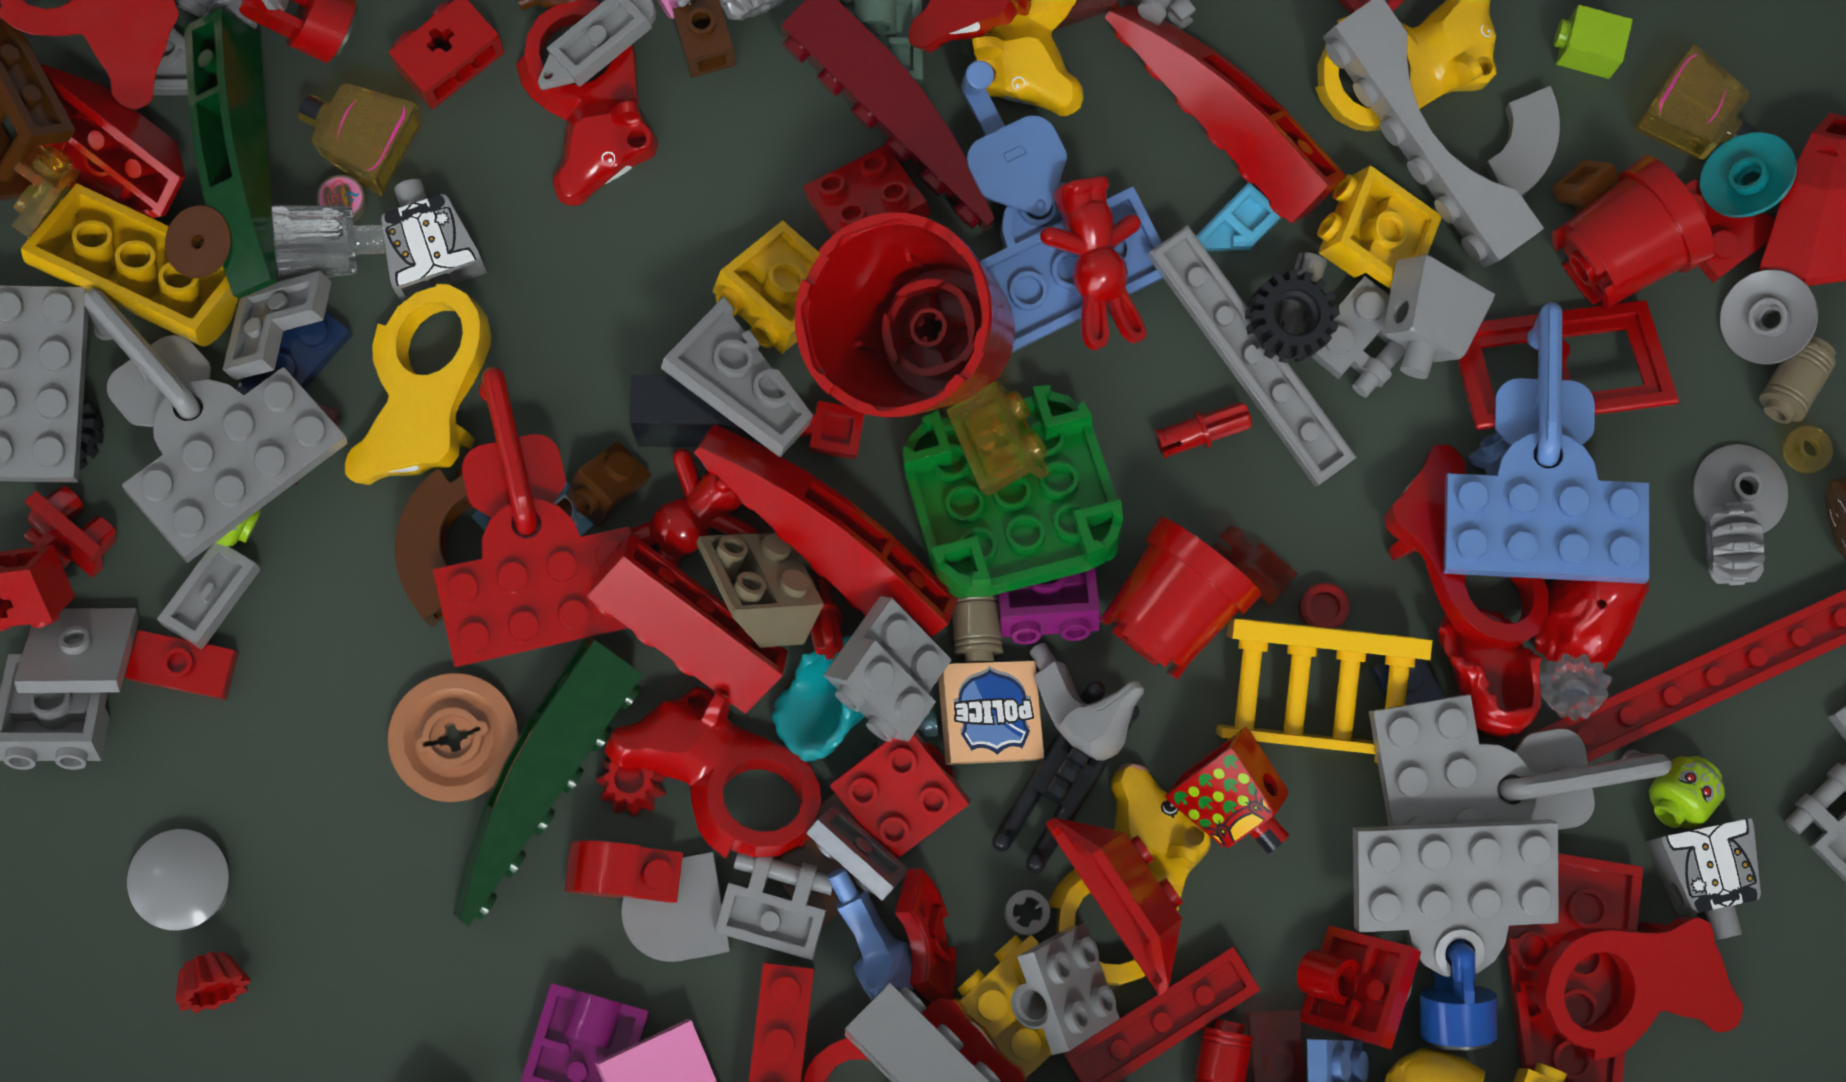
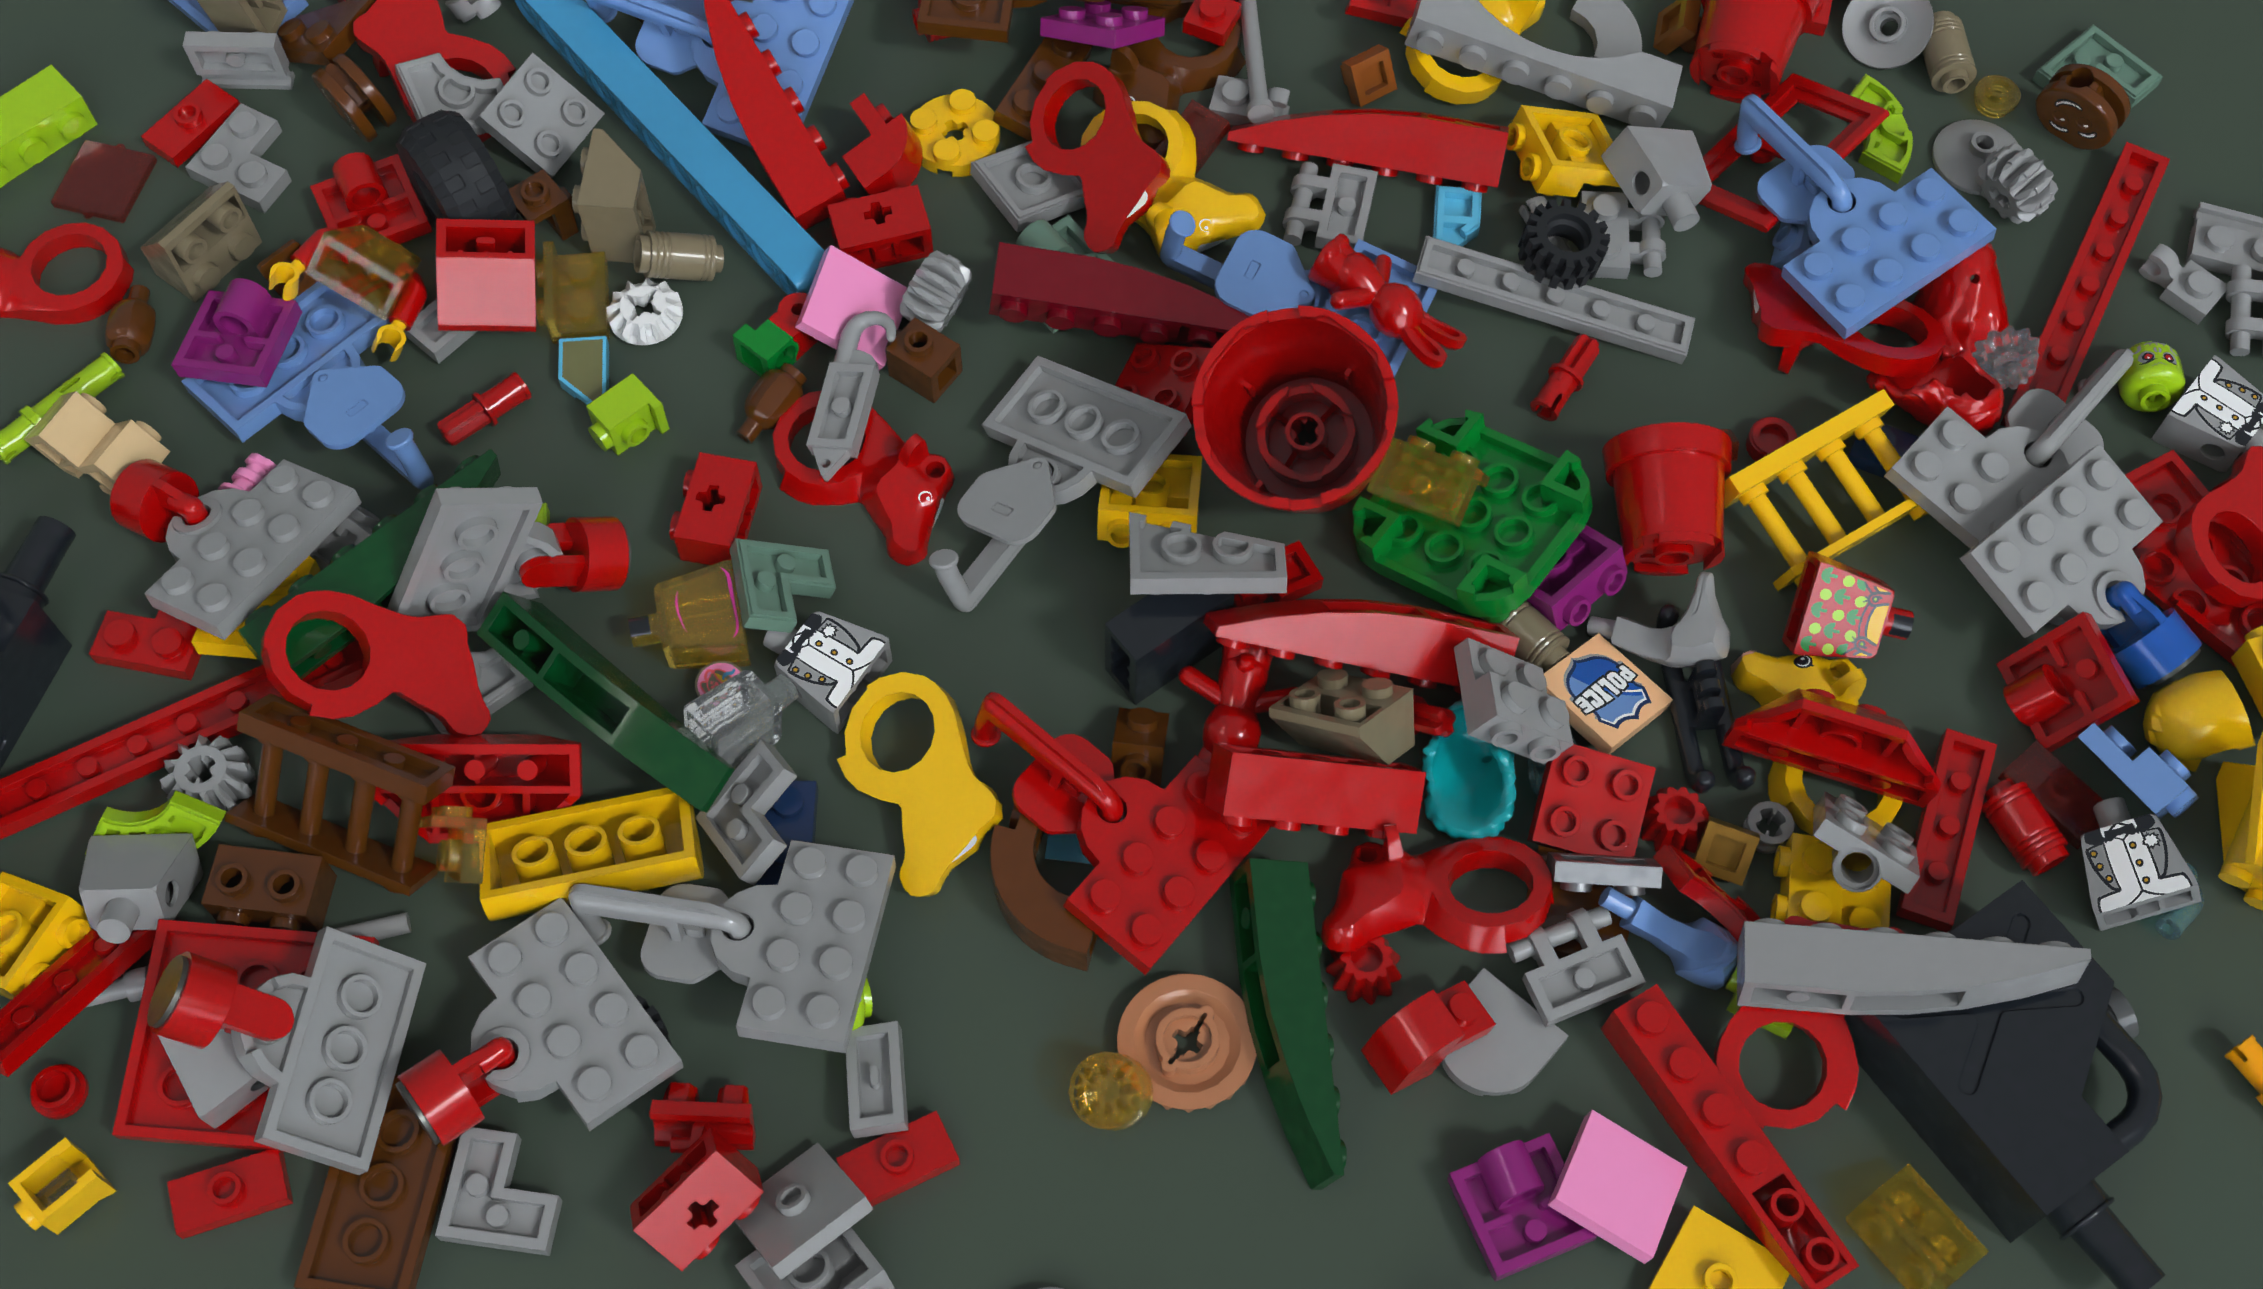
camera: 30 degrees left, 15 degrees down
(198, 241) = (635, 787): reddish brown piece -> none
(364, 735) = (1111, 1091): none -> clear yellow wheel
(437, 135) = (771, 574): none -> sand green tile
(754, 196) = (1064, 441): none -> light grey plate
(961, 852) = (1674, 819): none -> red piece
(973, 906) = (1726, 850): none -> pearl gold plate
(1152, 149) = (1345, 207): none -> light grey plate
(1278, 41) = (1369, 75): none -> dark orange tile
(1671, 426) = (1891, 143): none -> lime tile
(1804, 743) = (2187, 289): none -> light grey plate

